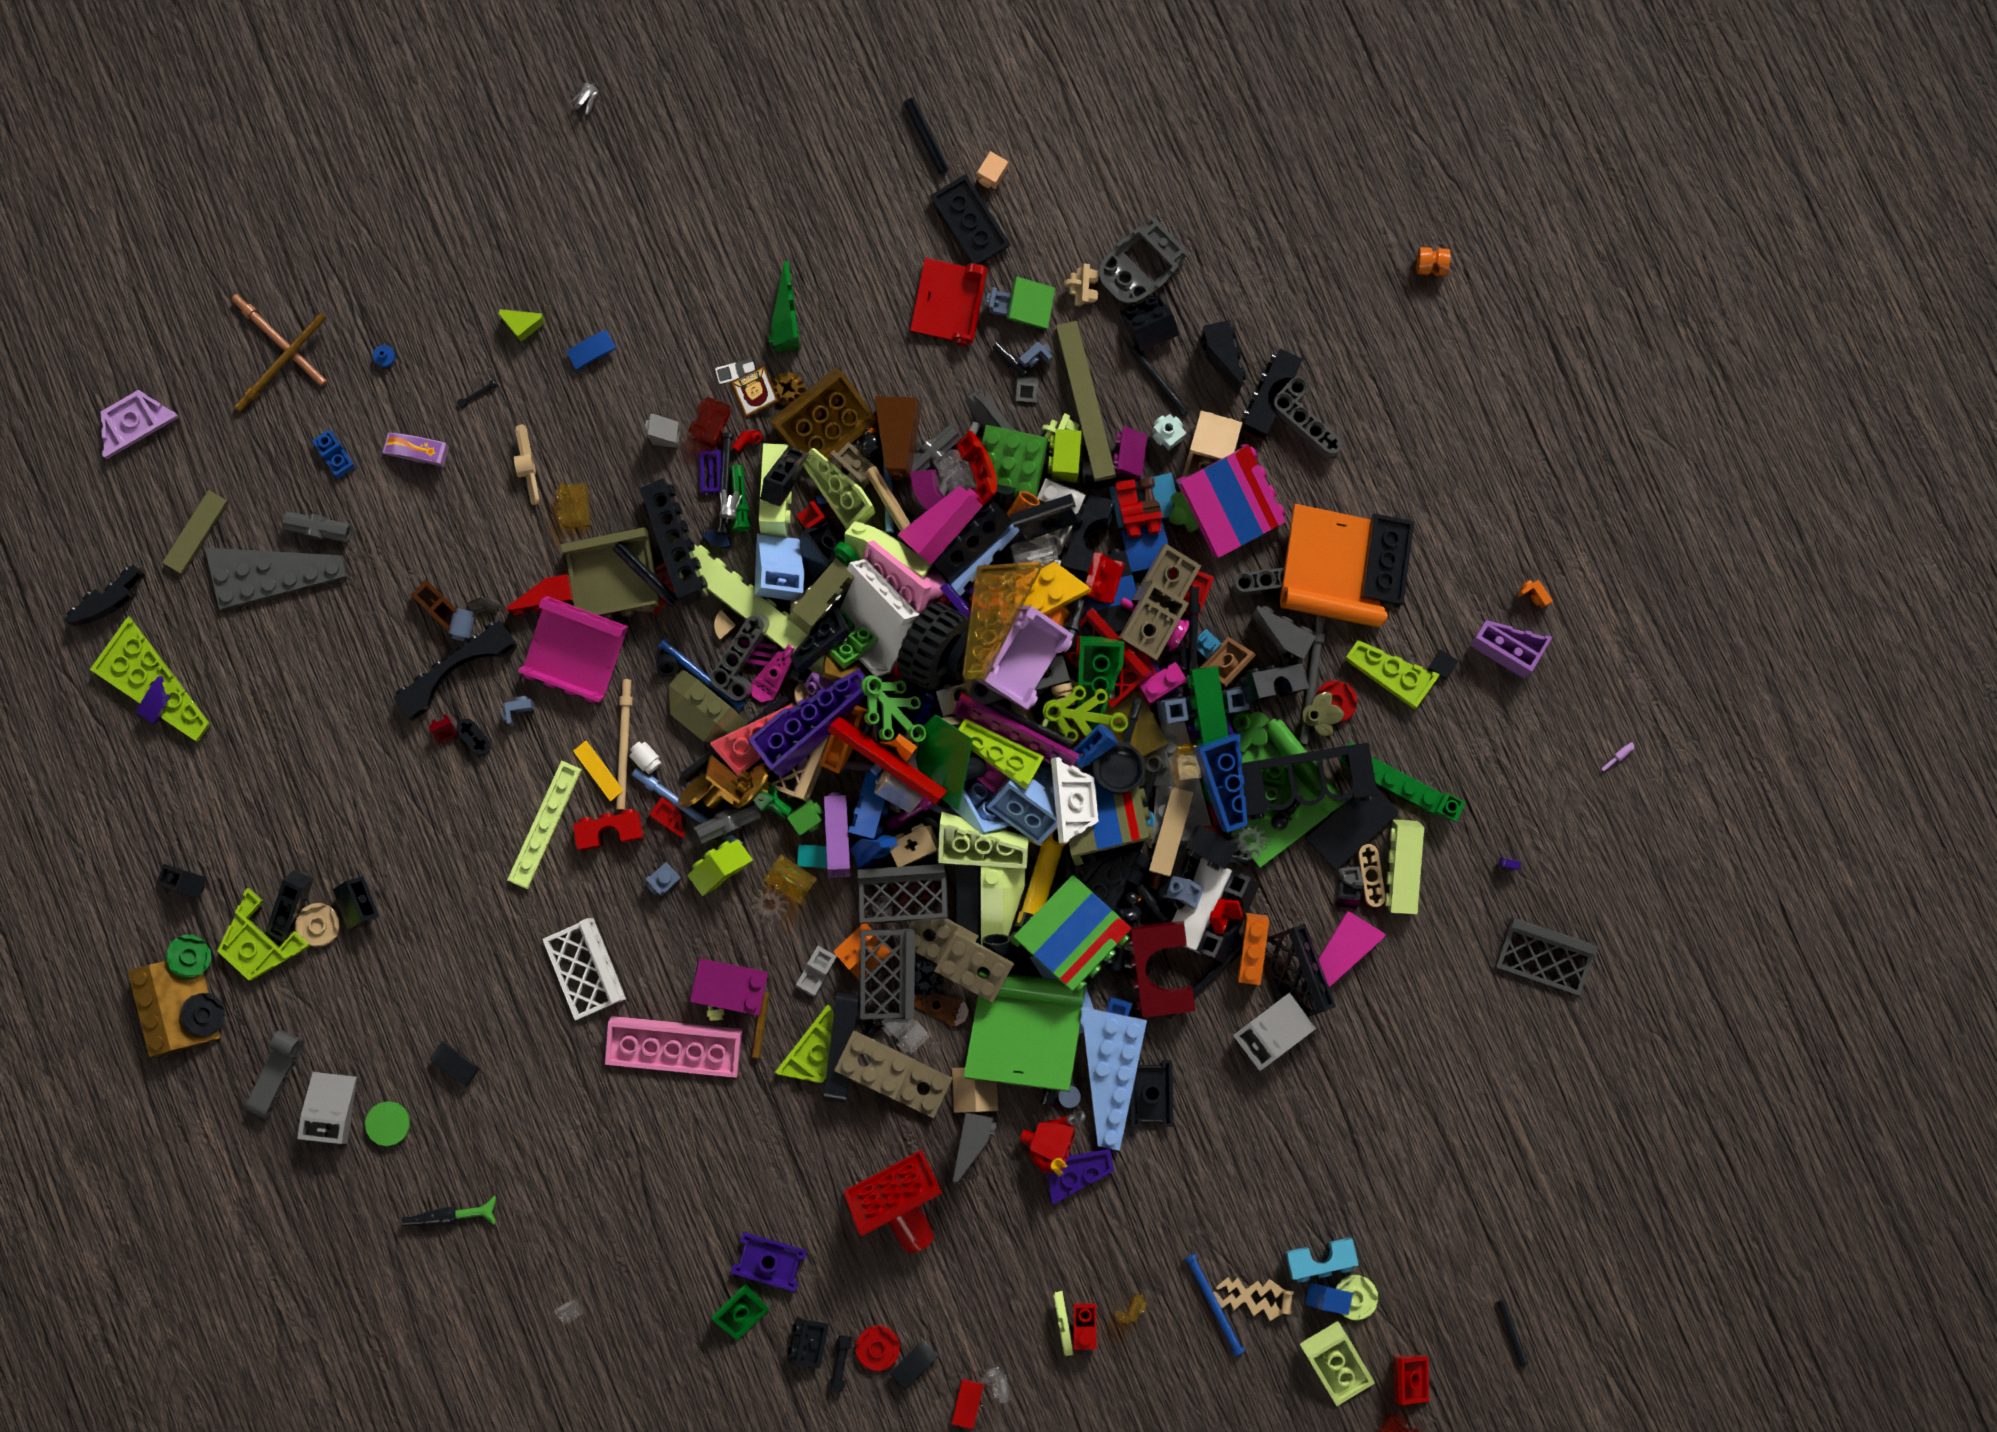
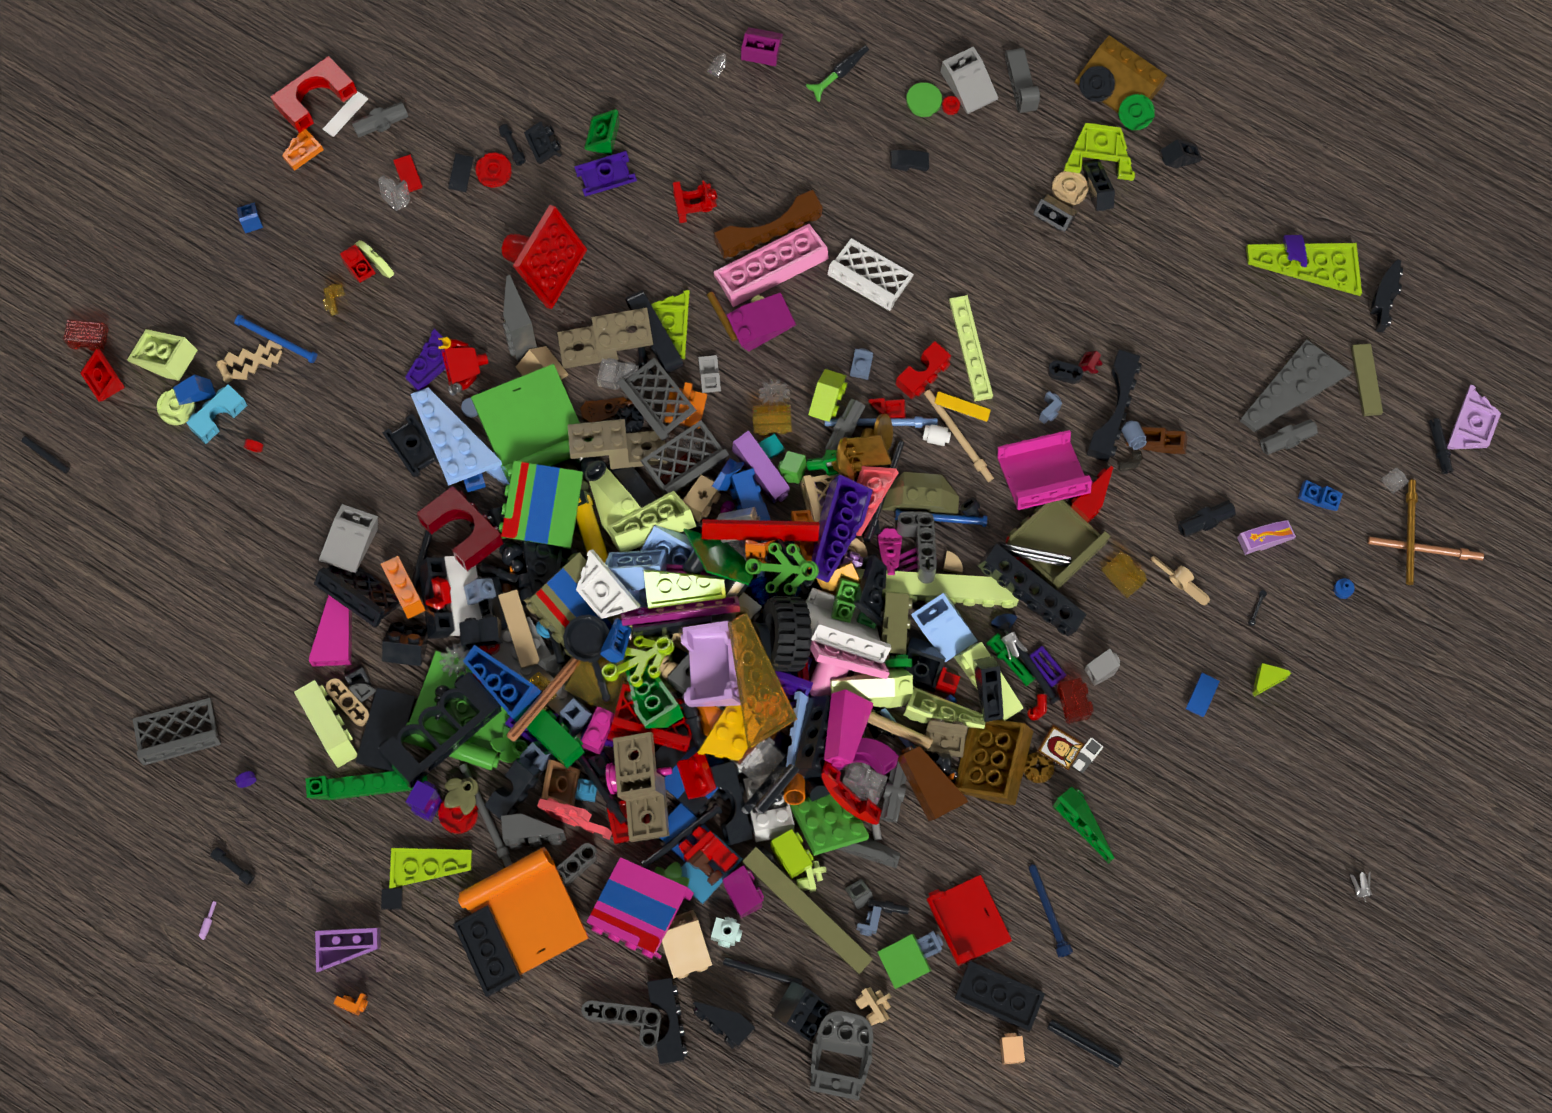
camera: 145 degrees right, 10 degrees down
(183, 420) = (1443, 453): none -> black pin
(252, 420) = (1395, 480): none -> clear tile
(365, 1098) = (951, 105): none -> red tile
(456, 503) = (1206, 518): none -> black piece
(507, 1299) = (761, 46): none -> magenta slope
(685, 1162) = (682, 199): none -> red tile
(691, 1097) = (736, 239): none -> reddish brown arch
(884, 221) = (1063, 948): none -> dark blue piece
(1151, 540) = (681, 836): none -> black bar
(1199, 738) = (543, 699): none -> nougat axle
(1237, 619) = (573, 816): none -> coral wing
(1284, 894) = (405, 644): none -> black slope
(1305, 1198) = (253, 446): none -> red tile
(1362, 723) = (424, 800): none -> dark purple arch
(1562, 774) = (244, 875): none -> black bar

